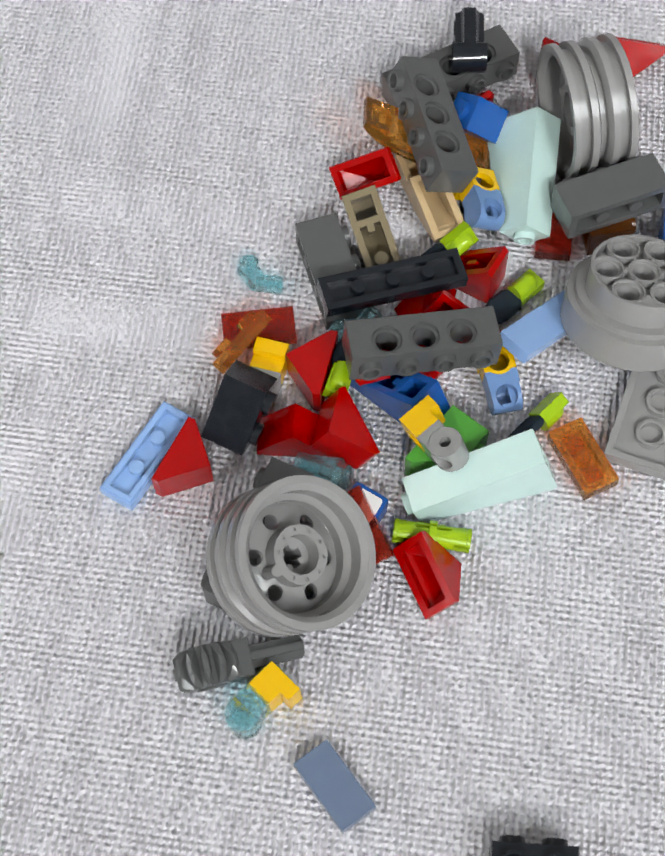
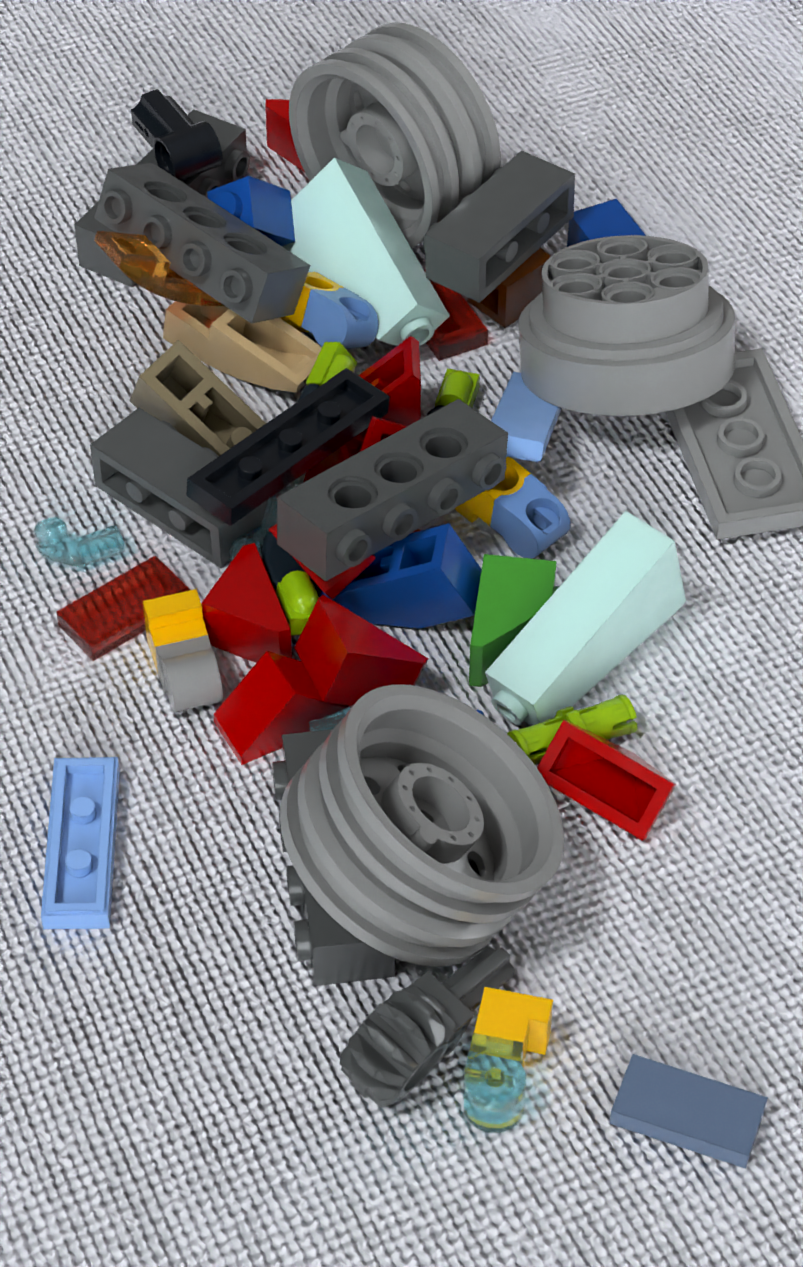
camera: 35 degrees left, 15 degrees down
(184, 463) = (157, 813): red slope -> none
(239, 408) = (191, 695): black brick -> none
(250, 327) = (114, 642): clear orange plate -> none
(361, 172) = (140, 344): red slope -> none
(439, 443) = (499, 589): leg -> none
(544, 414) = (600, 514): lime piece -> none
(582, 458) = (705, 548): clear orange plate -> none

